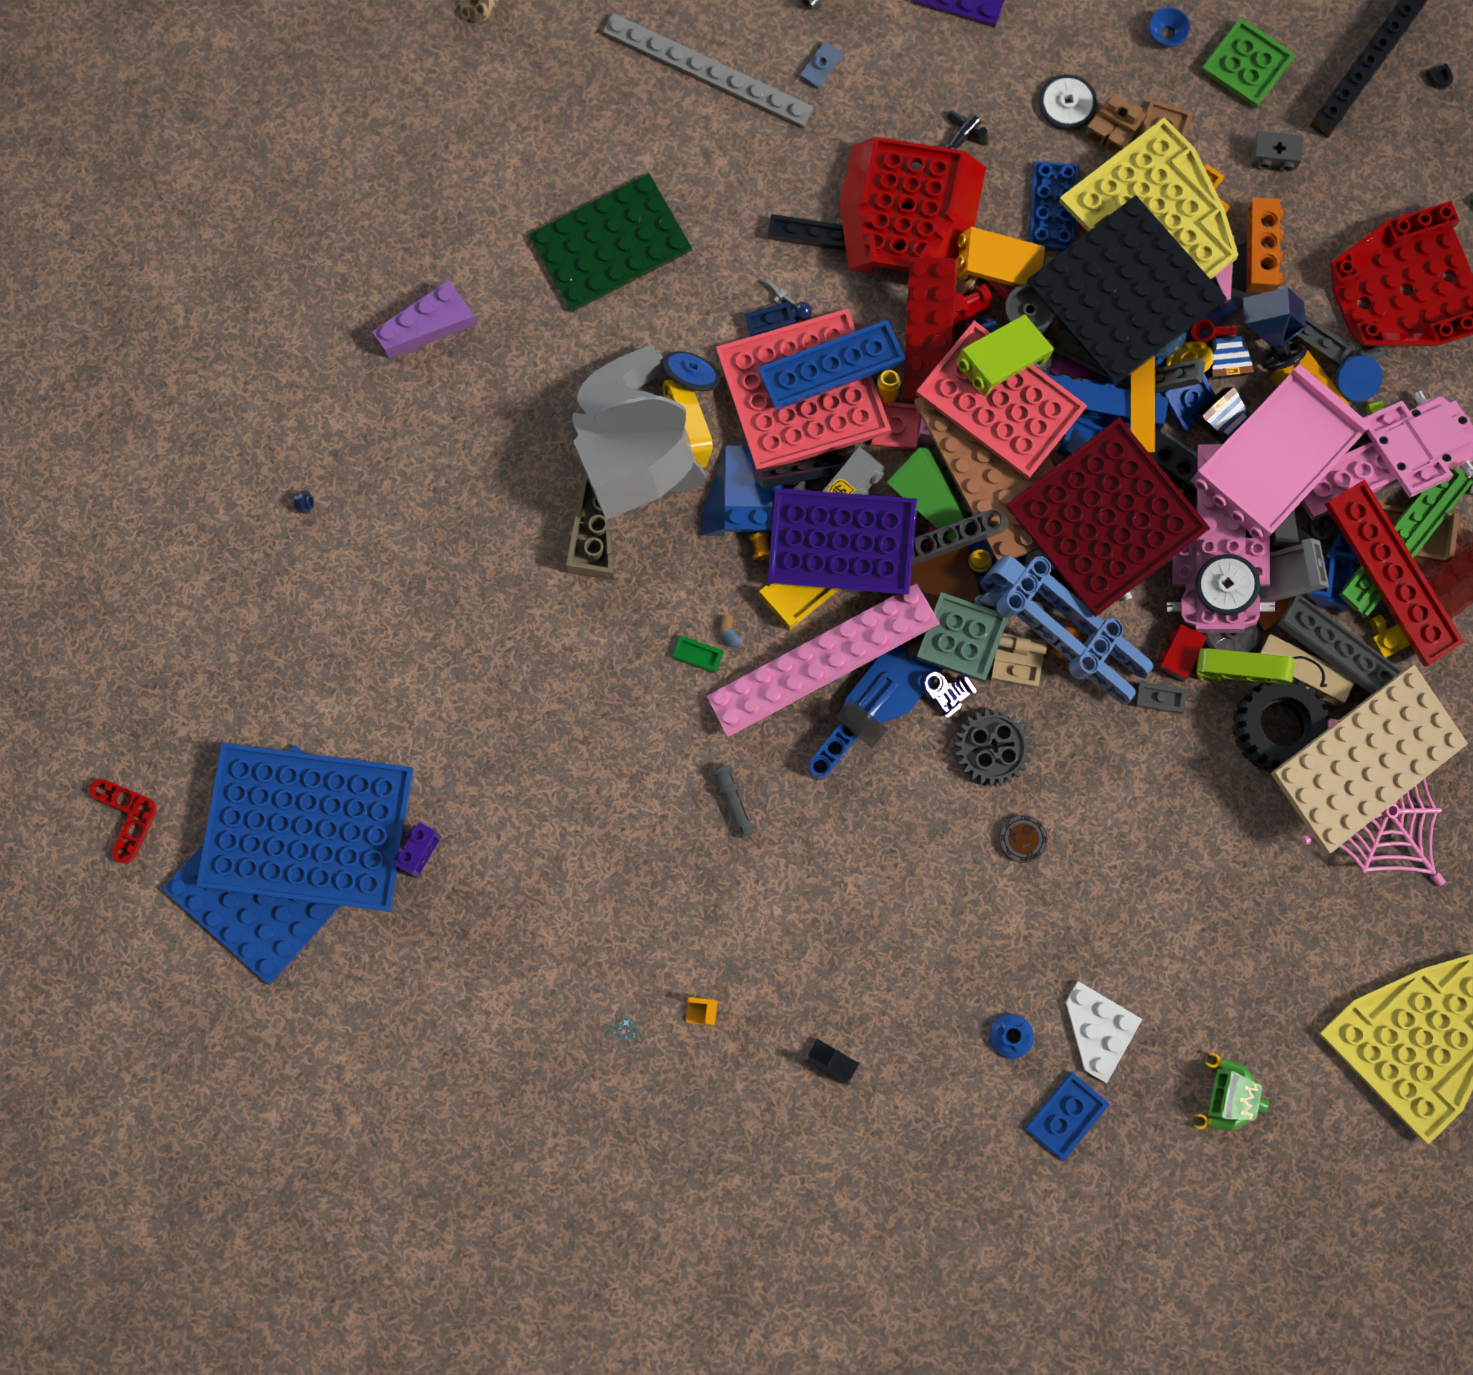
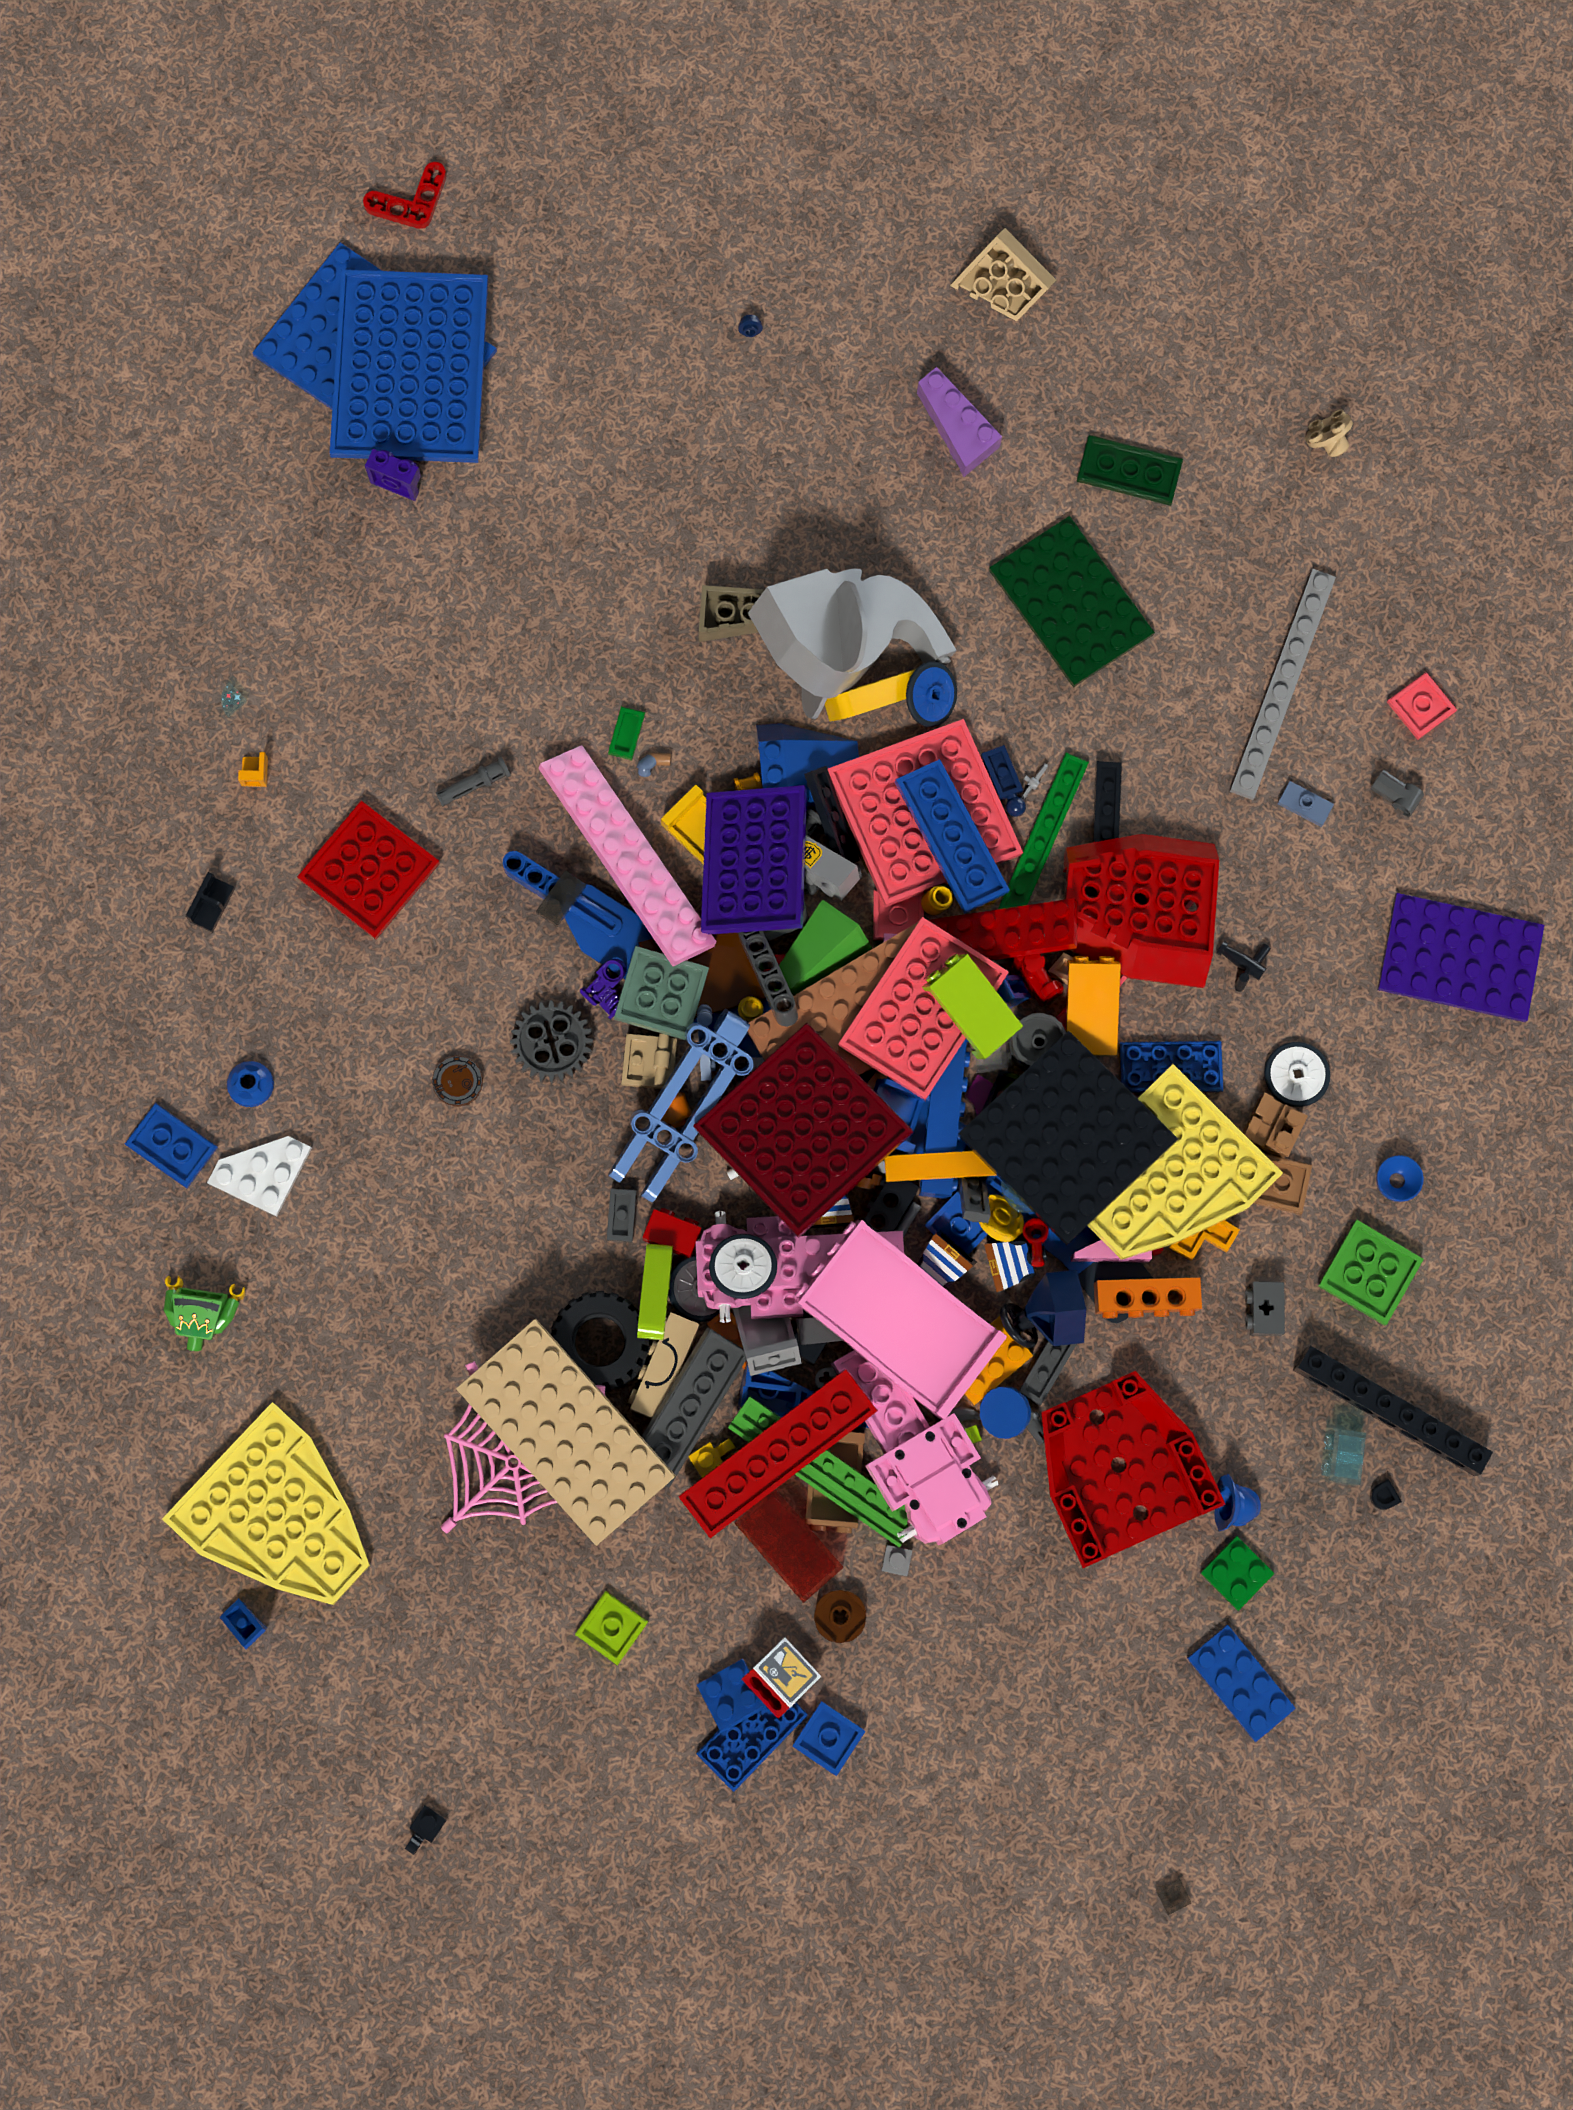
camera: 80 degrees right, 0 degrees up
(286, 263) = (1006, 276): none -> tan wedge
(489, 177) = (1129, 470): none -> dark green tile
(811, 907) = (368, 870): none -> red plate
(830, 290) = (1045, 831): none -> green tile
(1408, 102) = (1344, 1457): none -> clear light blue brick
(1448, 189) = (1240, 1507): none -> blue piece

